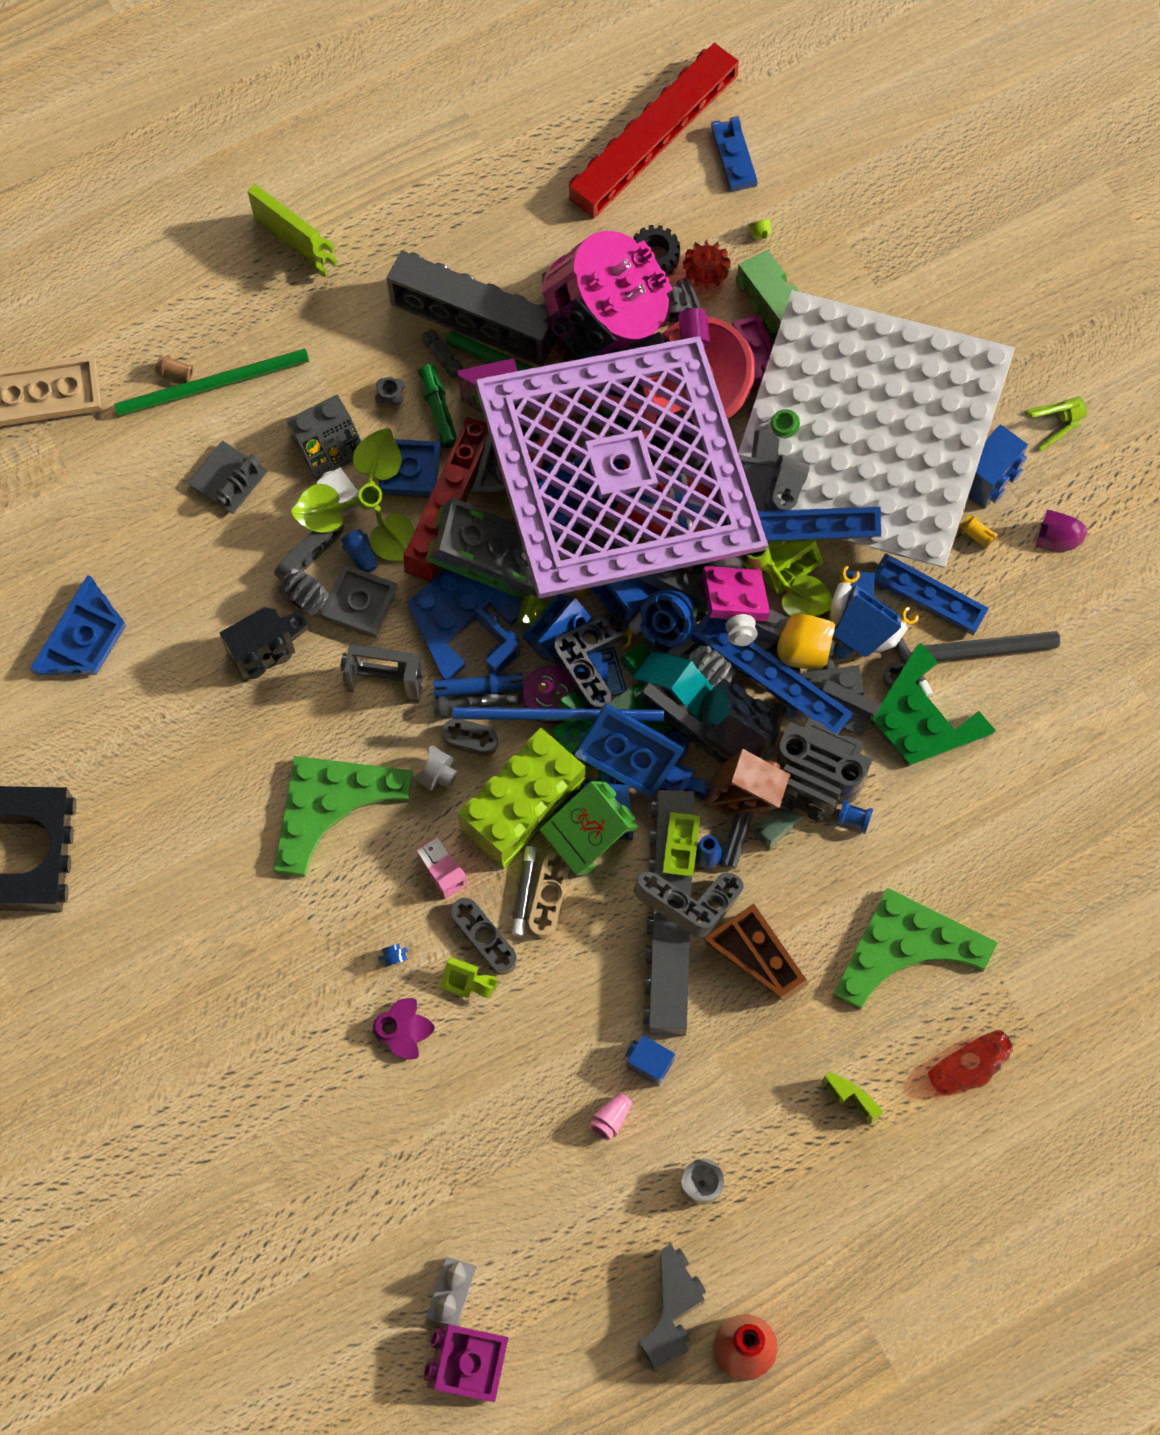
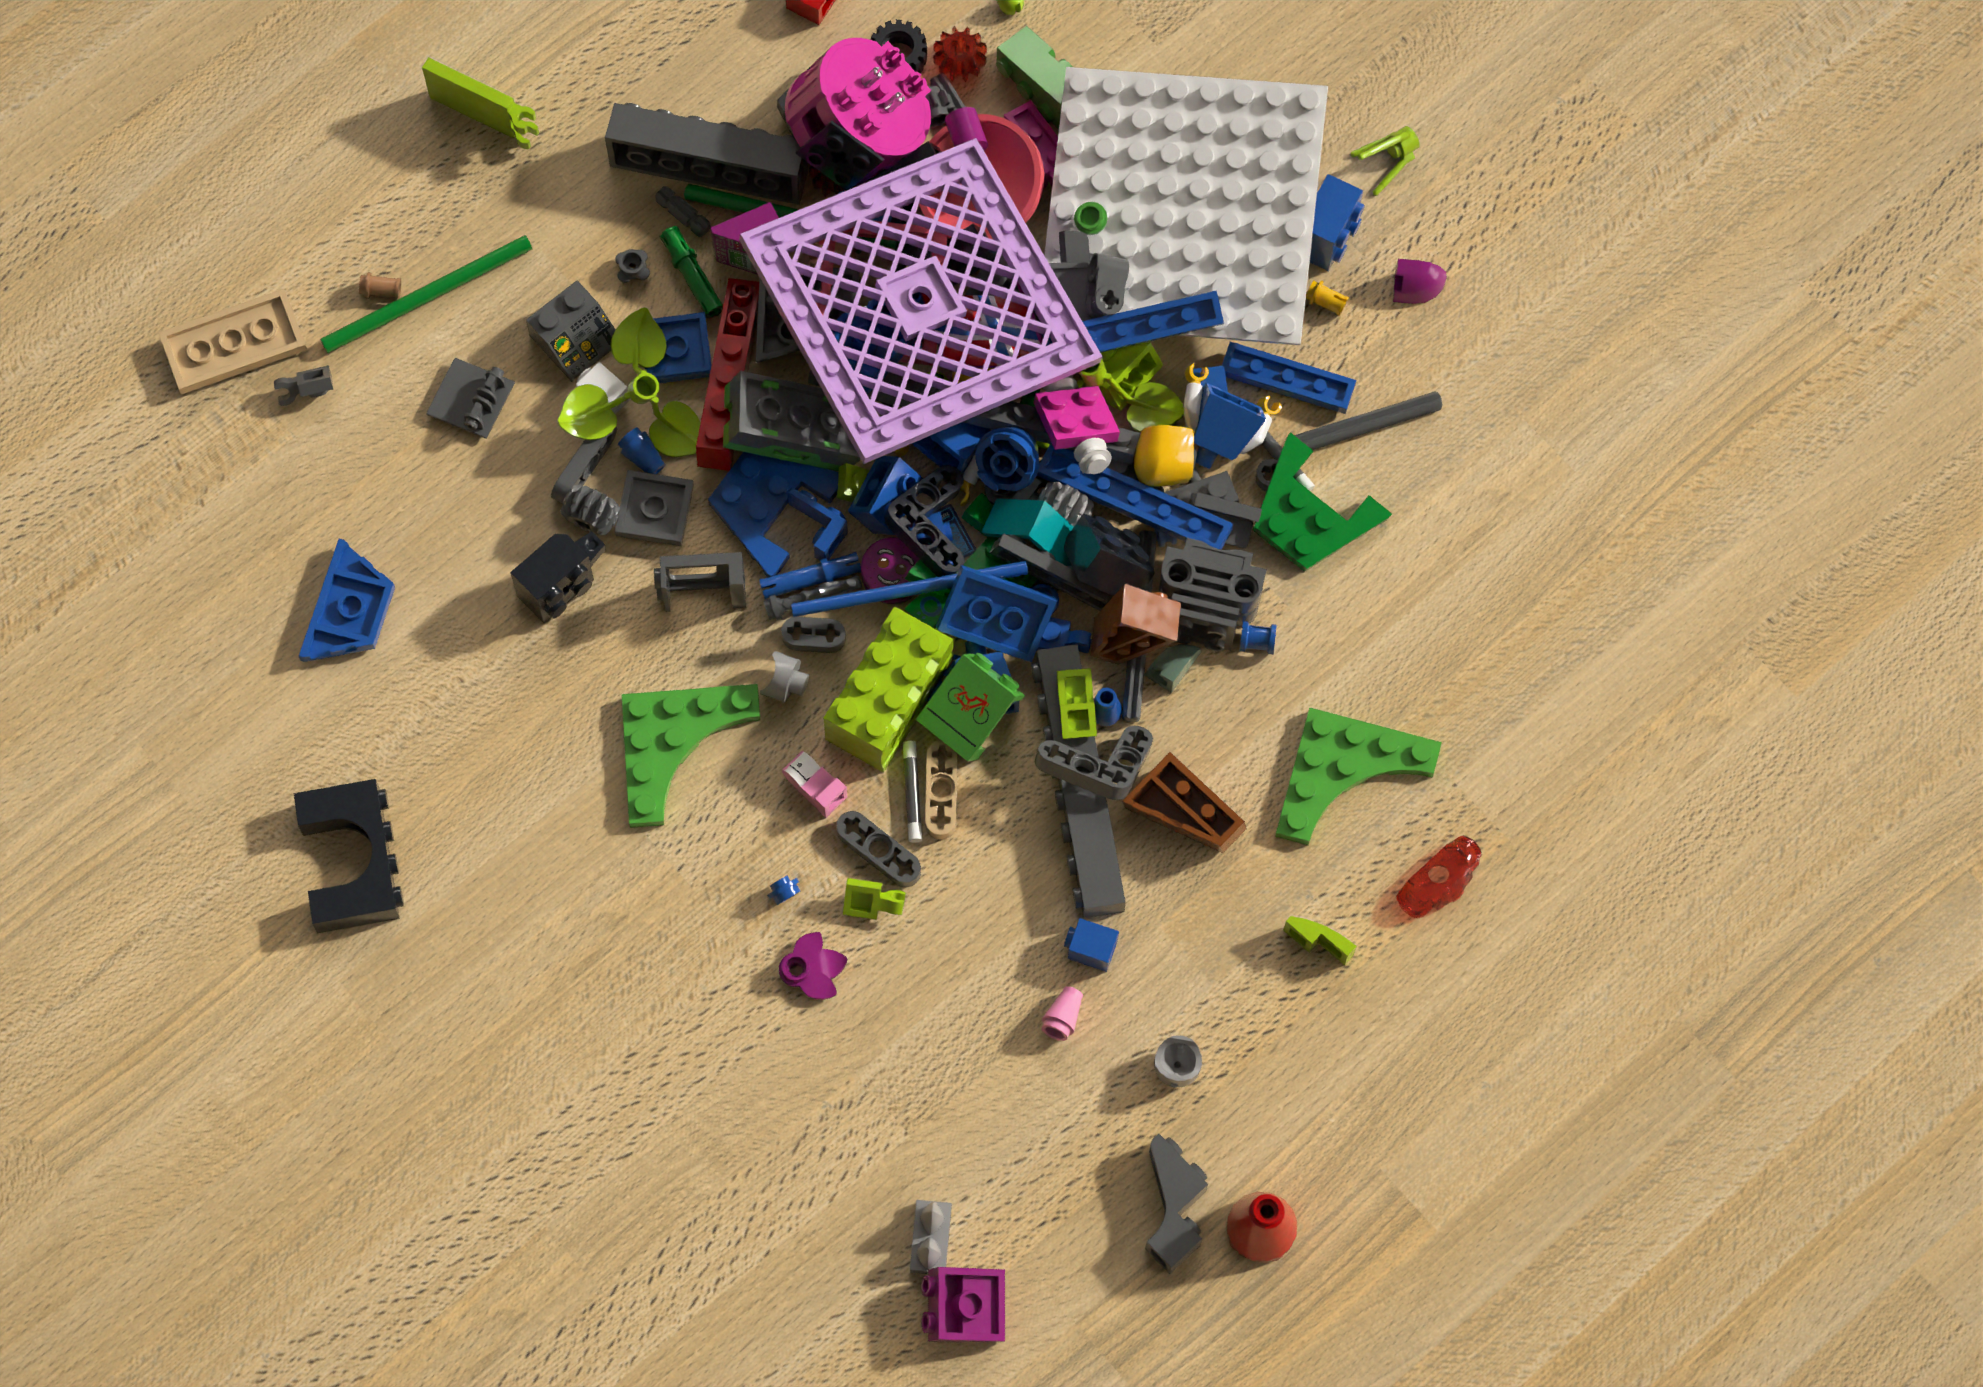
camera: 15 degrees left, 0 degrees up
(98, 439) = (309, 382): none -> dark grey plate

